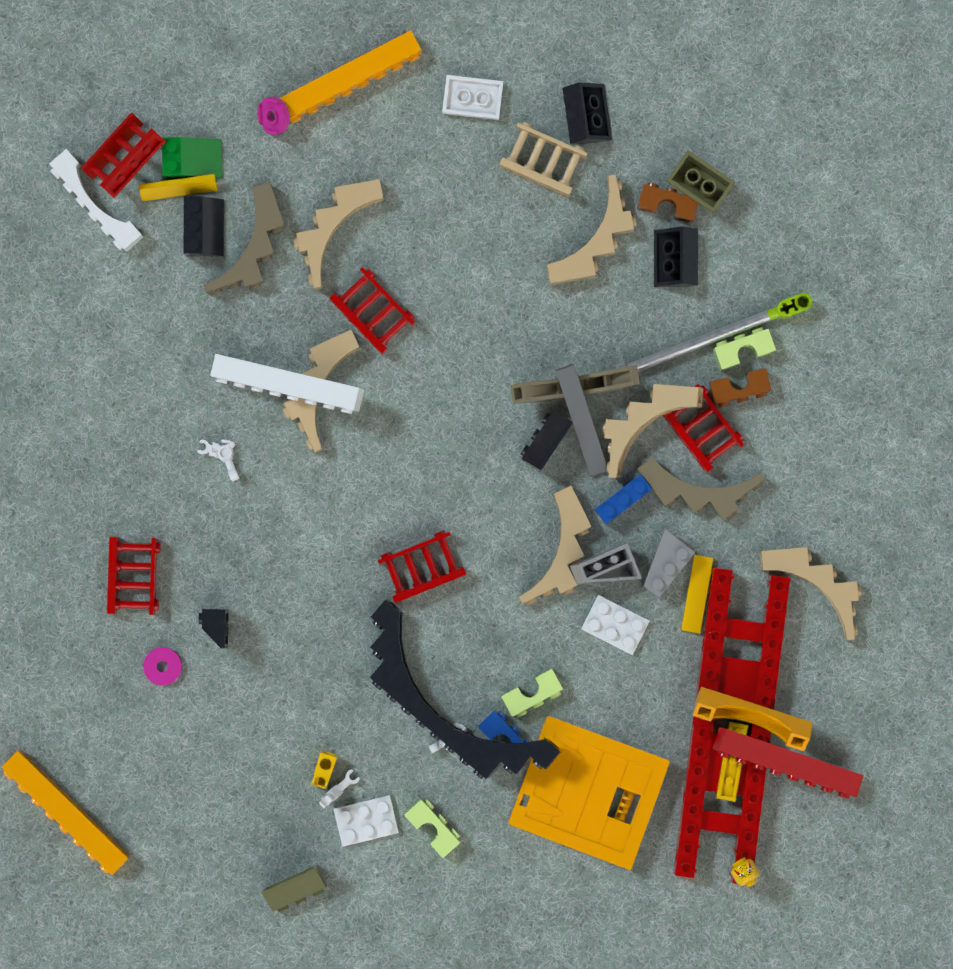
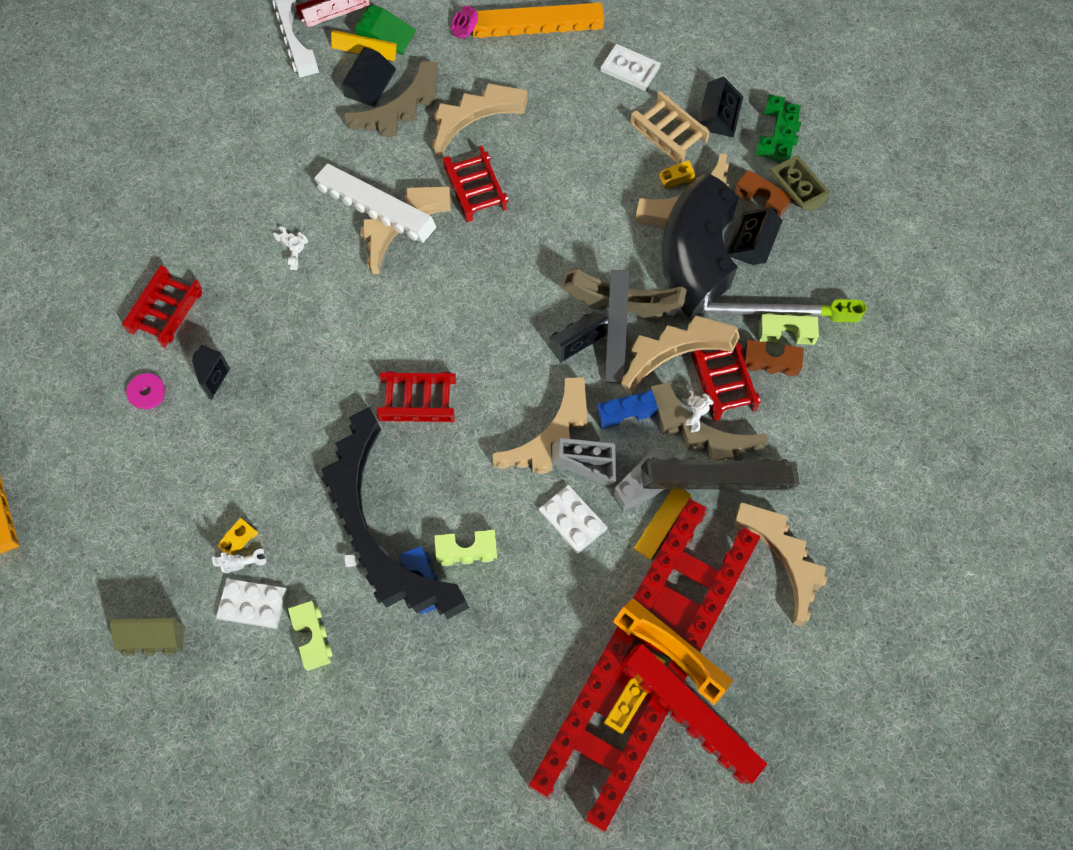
camera: 25 degrees right, 20 degrees down
(572, 215) = (677, 174): none -> yellow leg
(576, 792) = (467, 657): light orange door -> none
(622, 300) = (694, 243): none -> black brick
(663, 114) = (784, 137): none -> green bracket
(691, 472) = (699, 407): none -> white piece
(734, 534) = (719, 474): none -> clear smoke brick
(745, 872) = (603, 810): yellow head -> none

